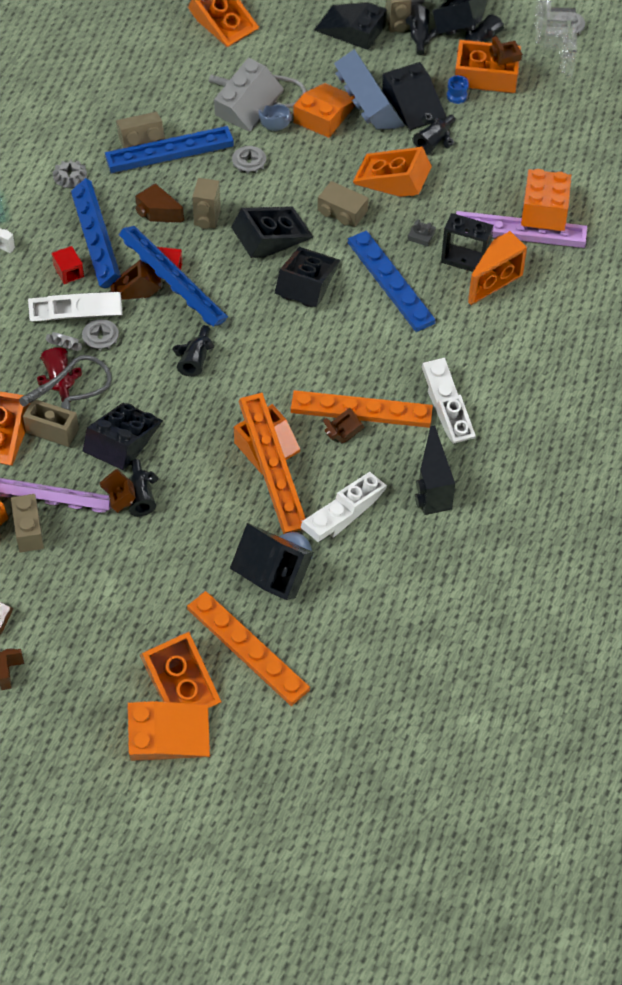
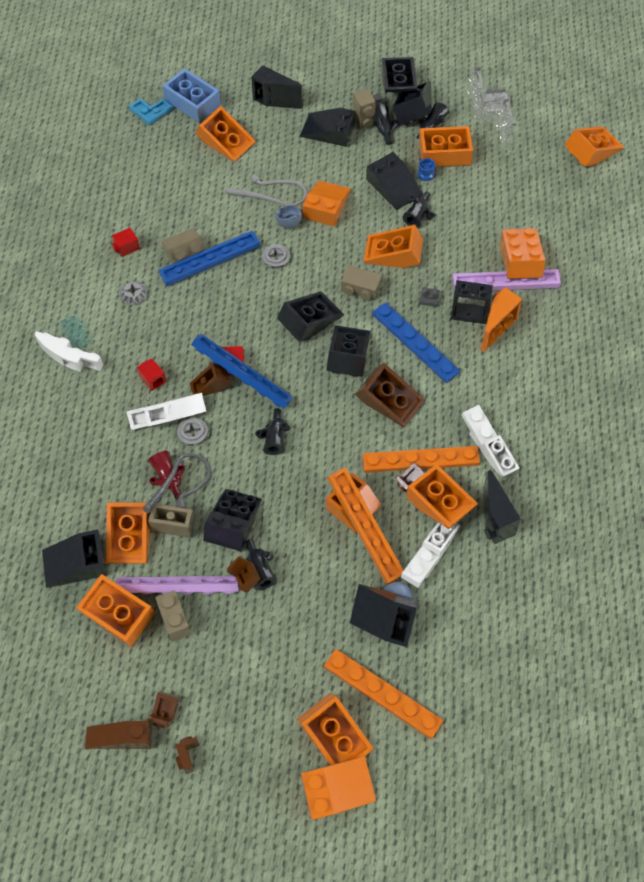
camera: 10 degrees left, 5 degrees up
(64, 341) = (165, 444): light grey gear -> none
(73, 116) = (125, 242): none -> red brick
(95, 234) = (167, 342): blue plate -> none
(158, 206) = (213, 309): reddish brown slope -> none
(206, 203) = (253, 301): dark tan brick -> none
(246, 94) = (262, 201): light grey slope -> none
(343, 332) = (390, 395): none -> reddish brown slope
(366, 92) = (358, 184): sand blue slope -> none
(369, 448) = (440, 497): none -> orange slope
(505, 52) = (460, 133): reddish brown bracket -> none

